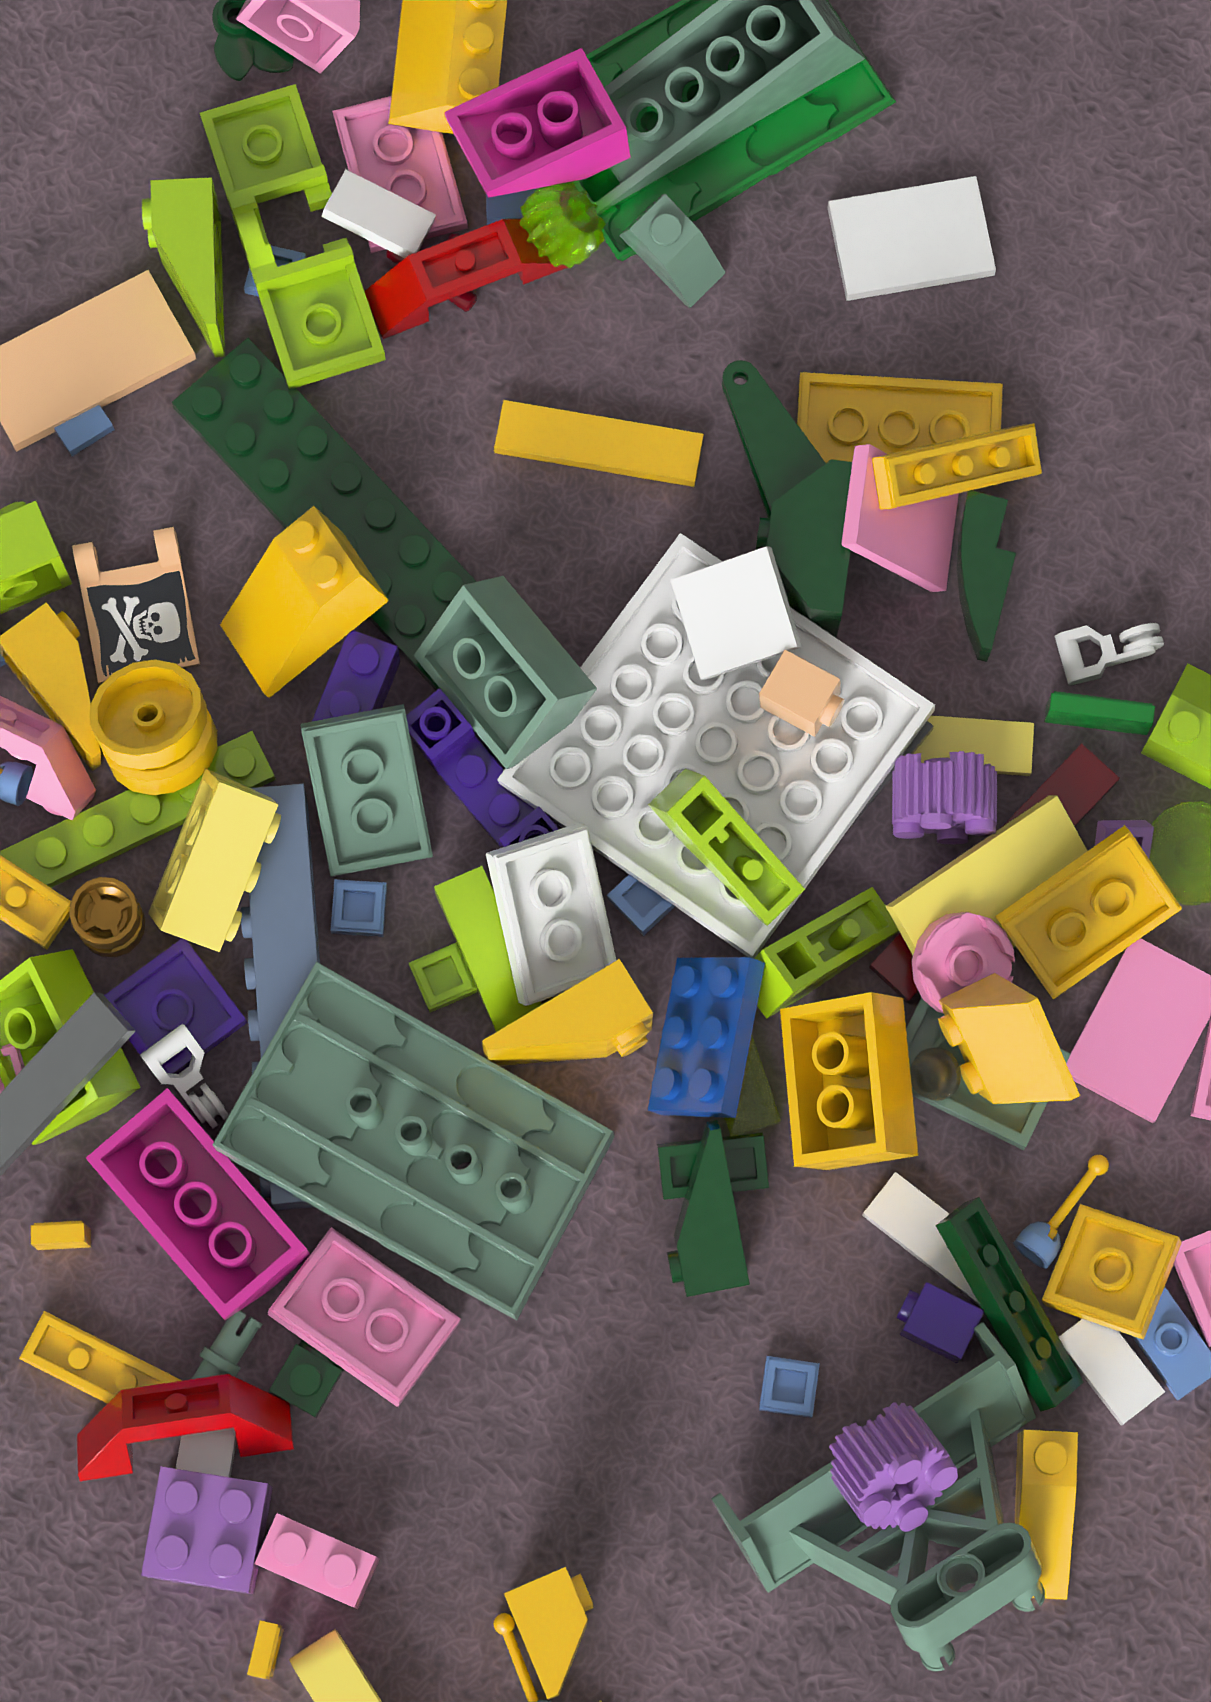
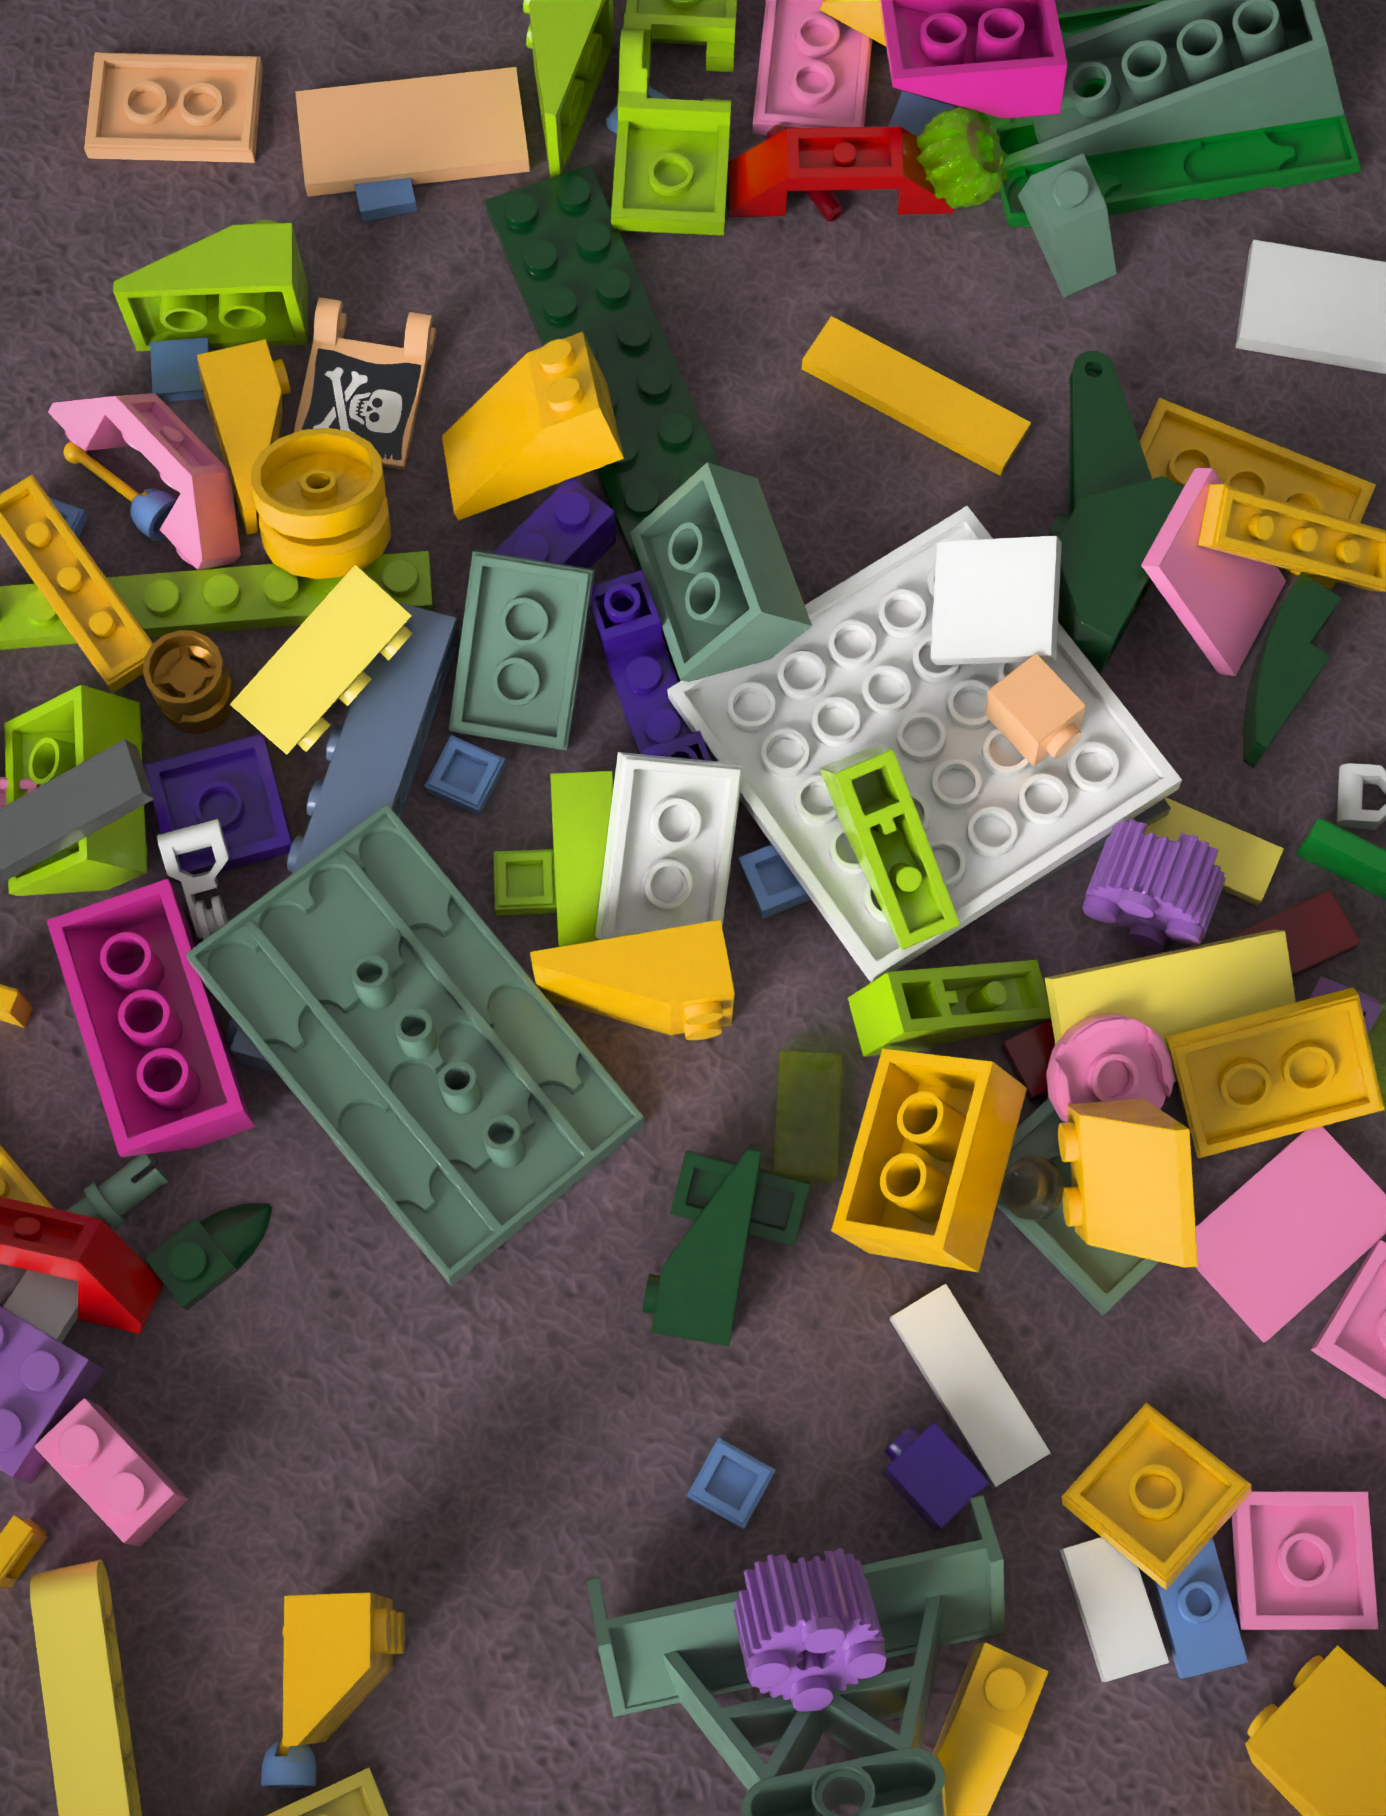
camera: 20 degrees right, 5 degrees down
(364, 1316) = (284, 1217): bright pink tile -> none
(378, 215) = (772, 85): white tile -> none
(706, 1037) = (787, 1050): blue plate -> none
(1009, 1304) = (1022, 1487): dark green plate -> none
(1040, 1239) = (1086, 1428): hinge -> none

